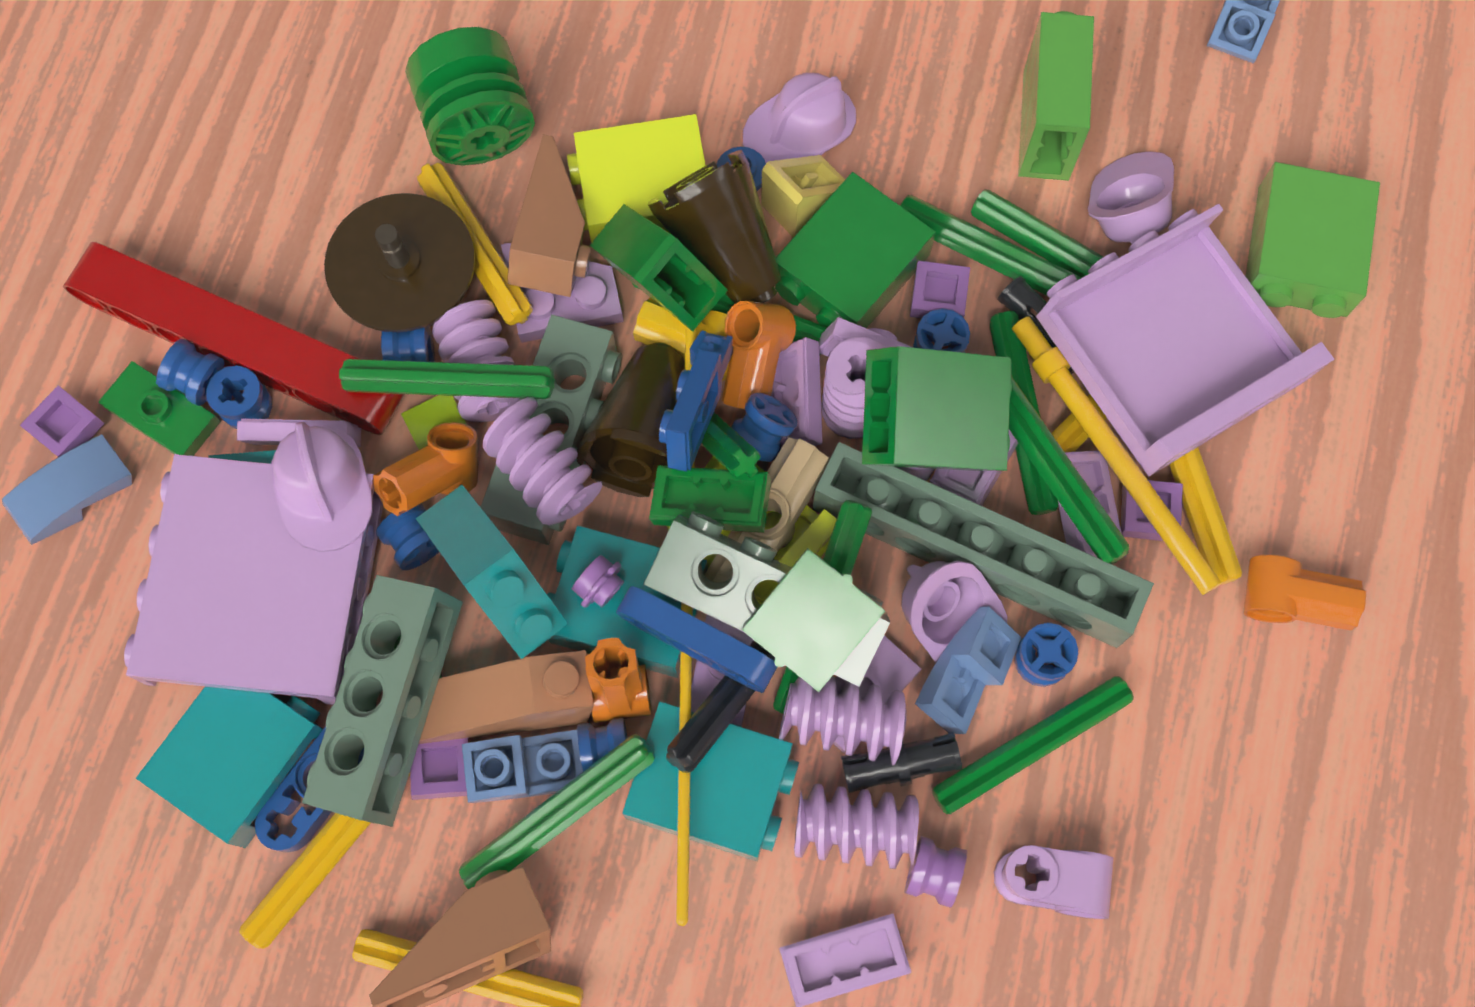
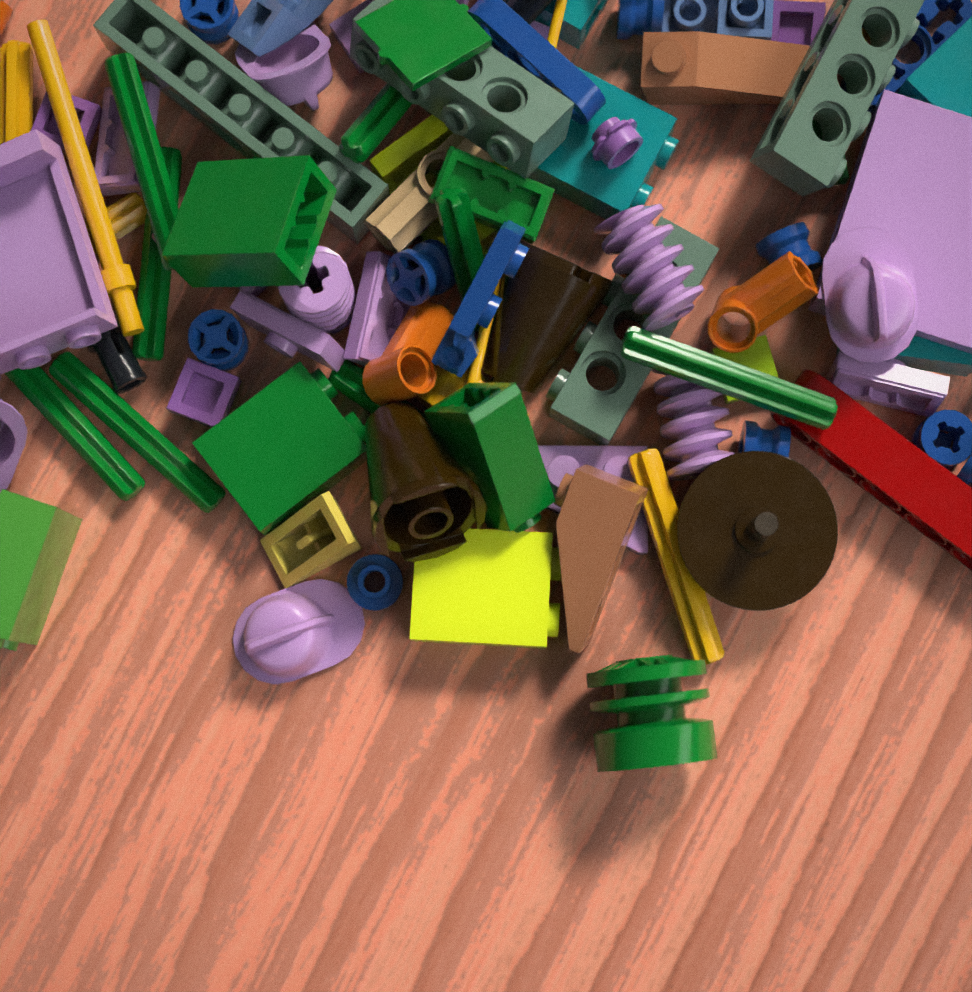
camera: 165 degrees left, 10 degrees up
(492, 571) = (717, 169): teal brick -> none
(617, 682) = (617, 56): orange piece -> none

